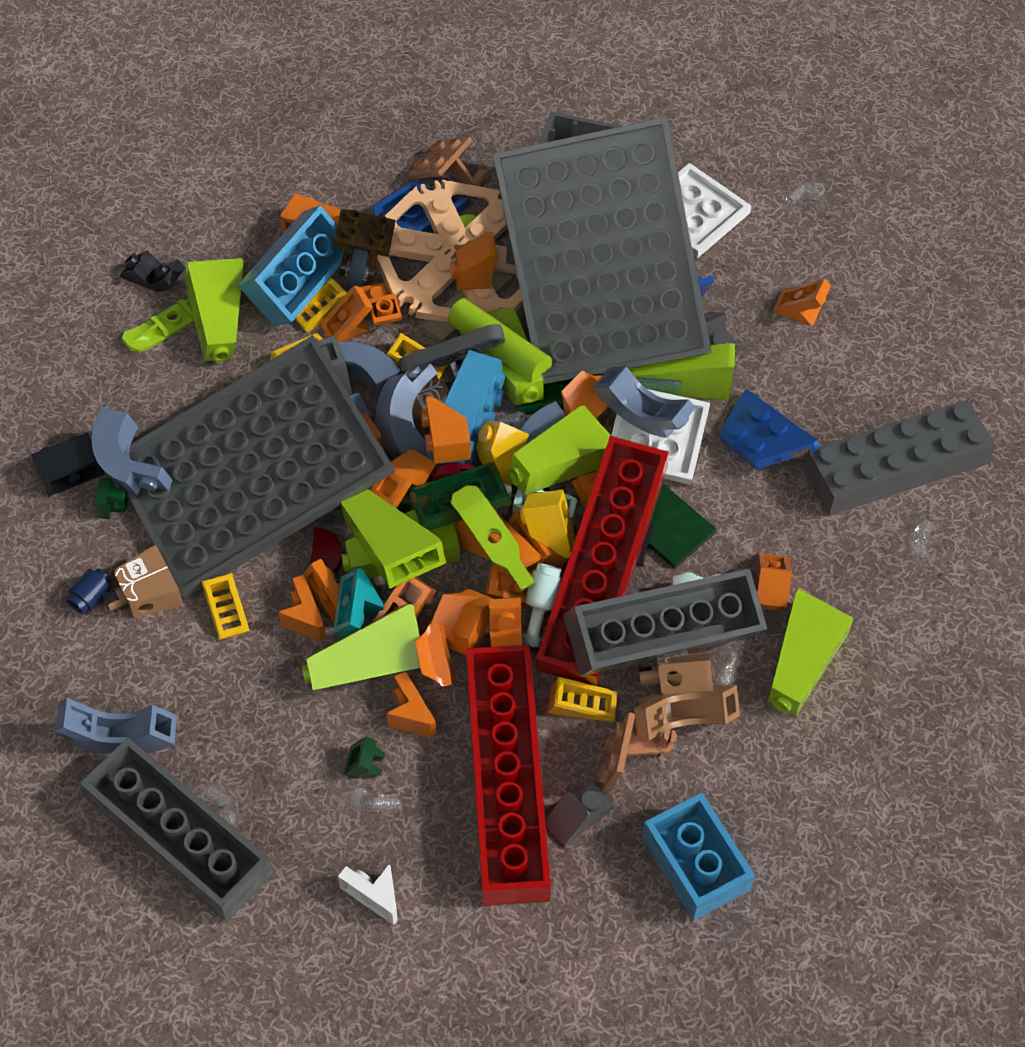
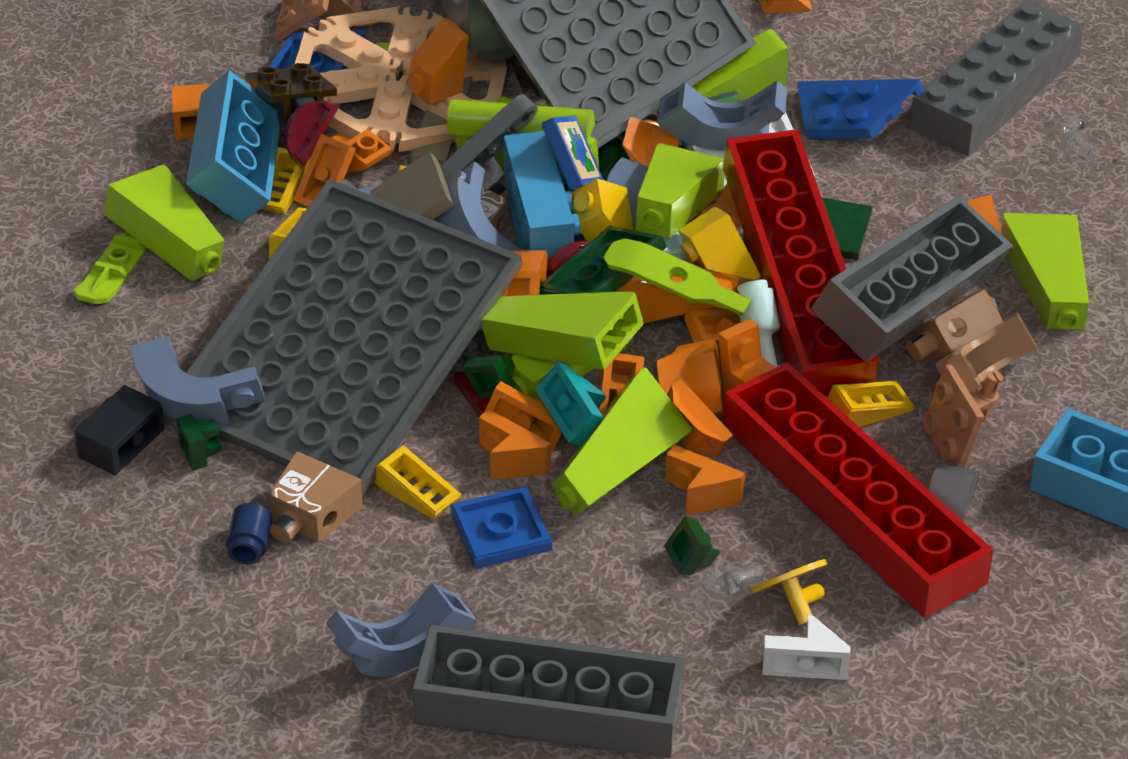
camera: 30 degrees left, 15 degrees down
(150, 273) = (49, 226): black slope -> none
(255, 671) = (501, 527): none -> blue tile
(327, 546) = (487, 373): none -> dark green tile
(347, 274) = (305, 129): none -> dark red tile
(373, 371) = (418, 188): none -> dark tan tile
(402, 826) = (797, 596): none -> yellow shield
(447, 434) = (550, 204): orange slope -> none
(505, 388) = (571, 151): none -> tile

